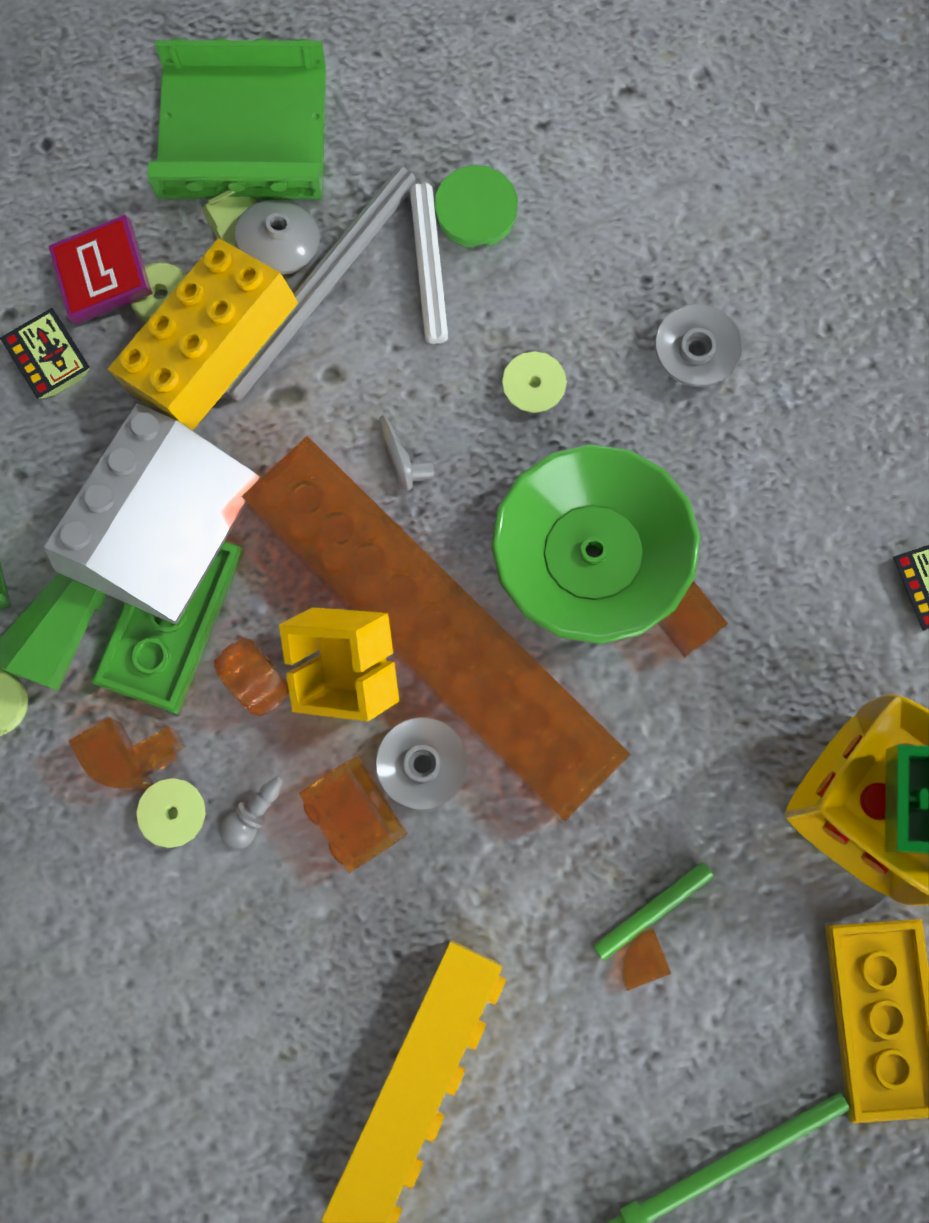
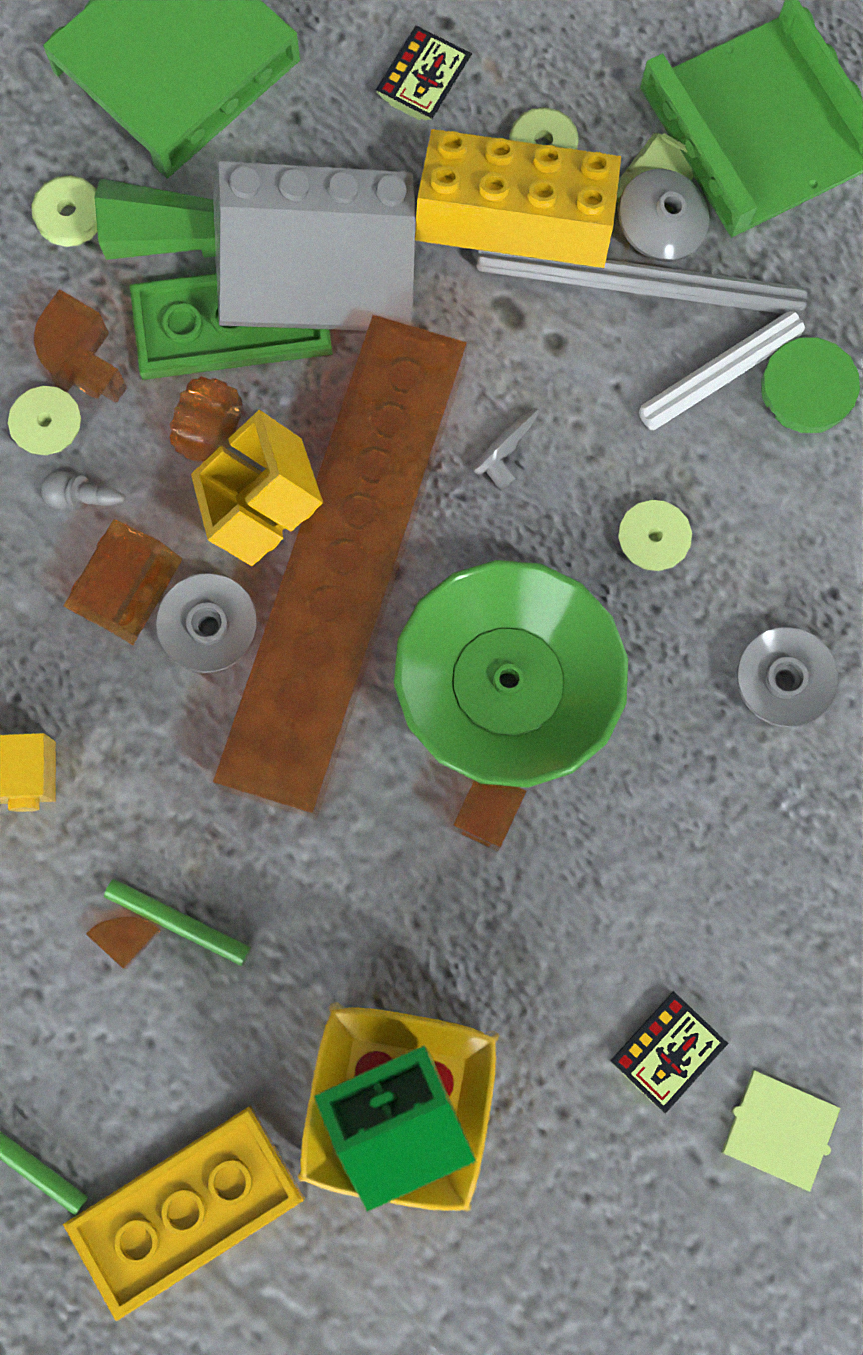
camera: 60 degrees right, 0 degrees up
(100, 269) = (533, 74): red tile -> none

